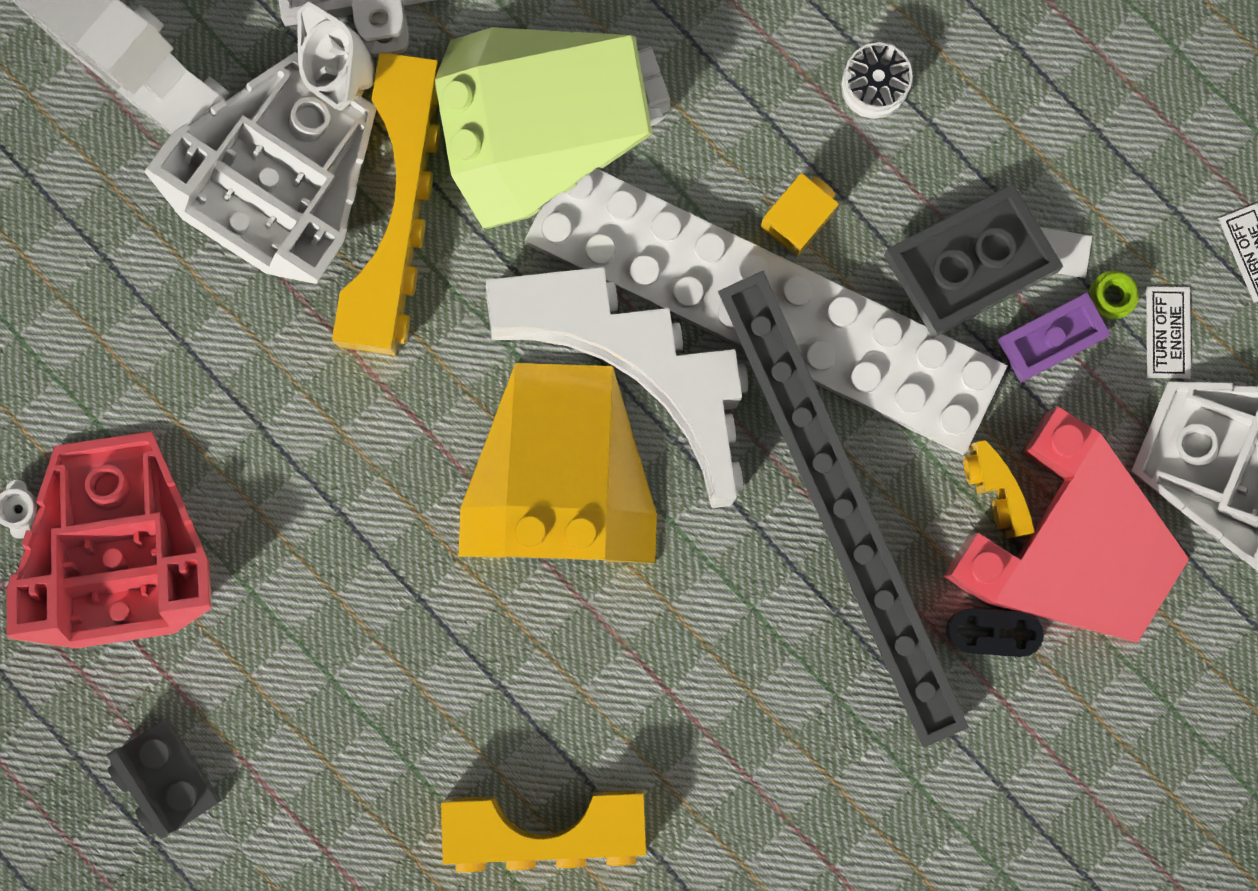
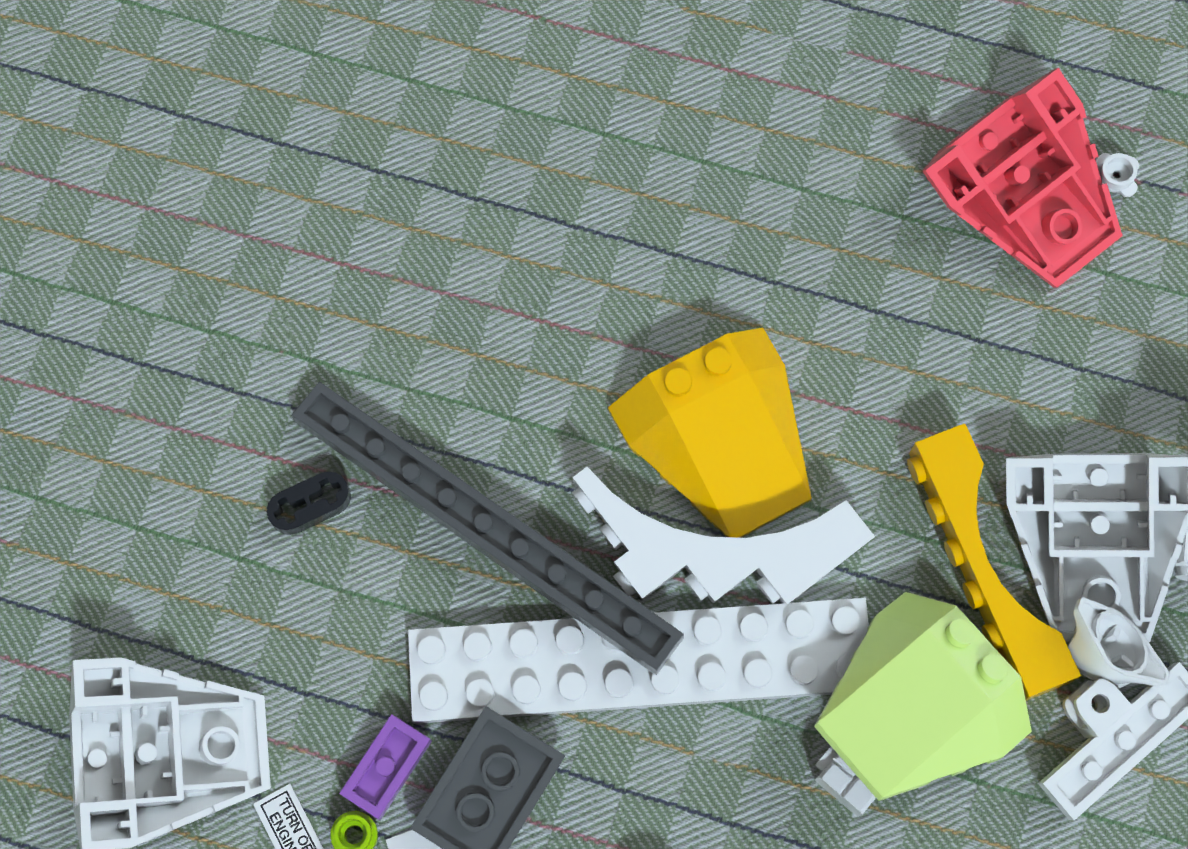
camera: 150 degrees right, 10 degrees down
(162, 779) = (879, 48): dark grey bracket -> none
(481, 833) = (619, 138): yellow arch -> none
(800, 213) = (654, 749): yellow brick -> none
(990, 474) = (374, 620): yellow slope -> none
(1095, 553) = (260, 607): coral wedge -> none

